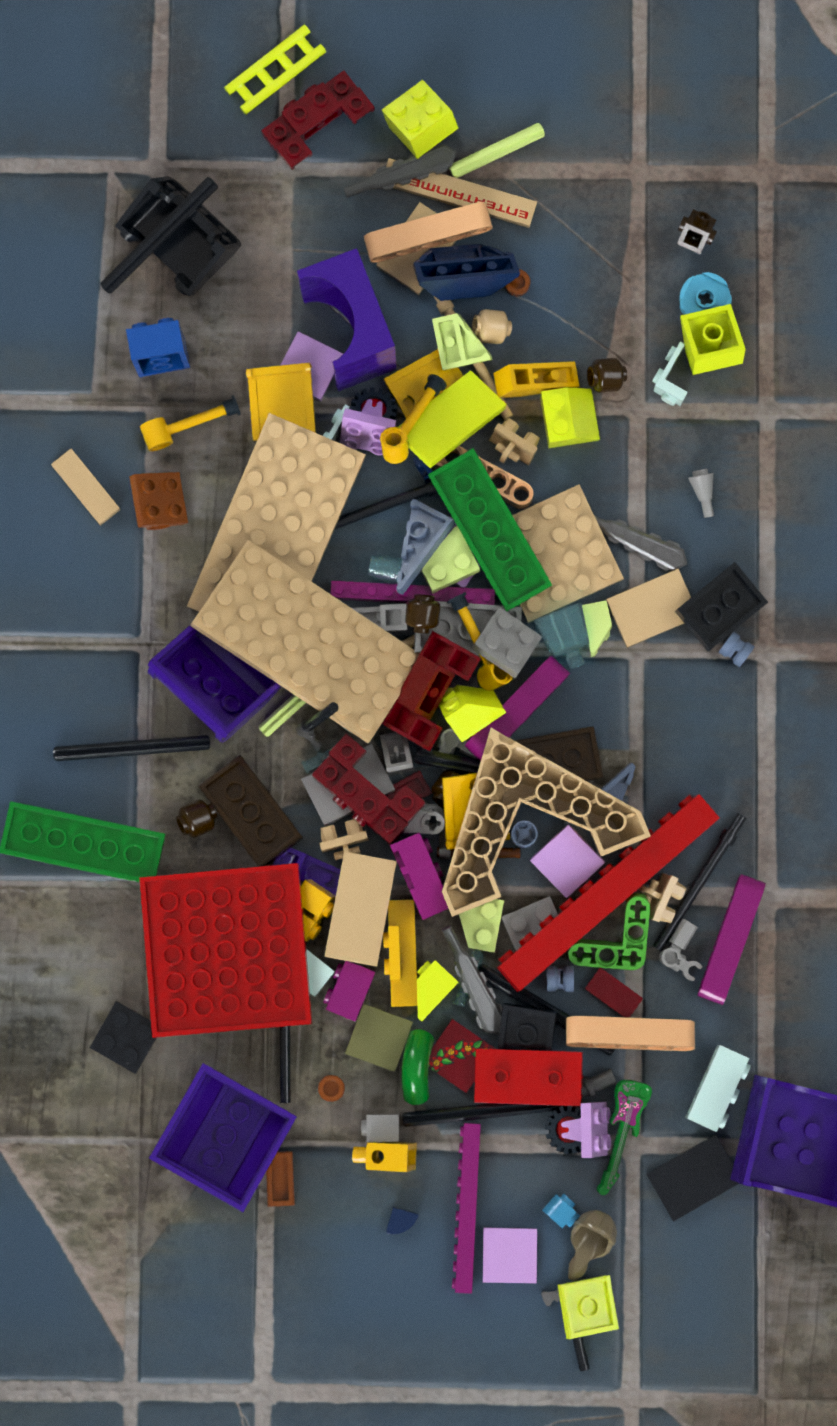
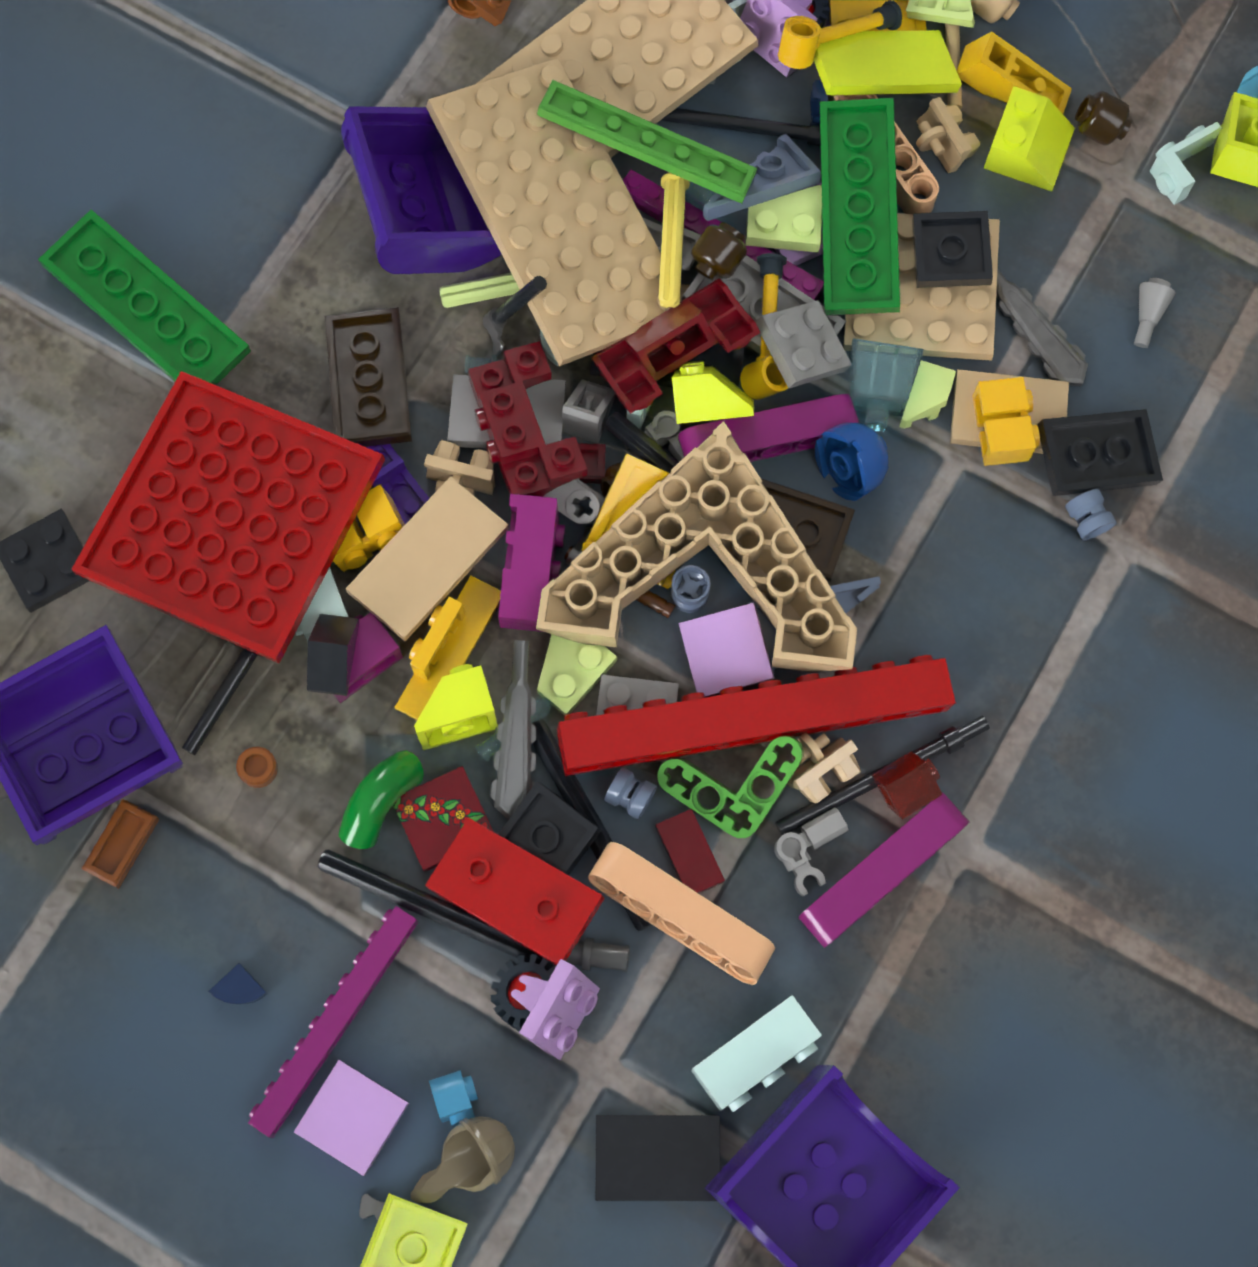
camera: 25 degrees right, 10 degrees down
(131, 748) = (275, 232): black axle -> none
(196, 818) = (297, 349): dark brown head -> none
(338, 567) = (647, 141): none -> bright green tile
(339, 999) = (331, 654): none -> black slope
(379, 1037) = (355, 737): olive tile -> none
(381, 1127) = (287, 850): light grey brick -> none
(388, 619) = (672, 239): none -> light yellow axle
(397, 1156) = (272, 890): yellow torso -> none
(562, 526) = (952, 249): none -> black plate
(577, 695) = (853, 458): none -> blue cylinder
(630, 1101) = (630, 1003): green piece -> none
(648, 609) = (1003, 411): none -> yellow piece
(718, 881) = (908, 784): none -> clear red brick

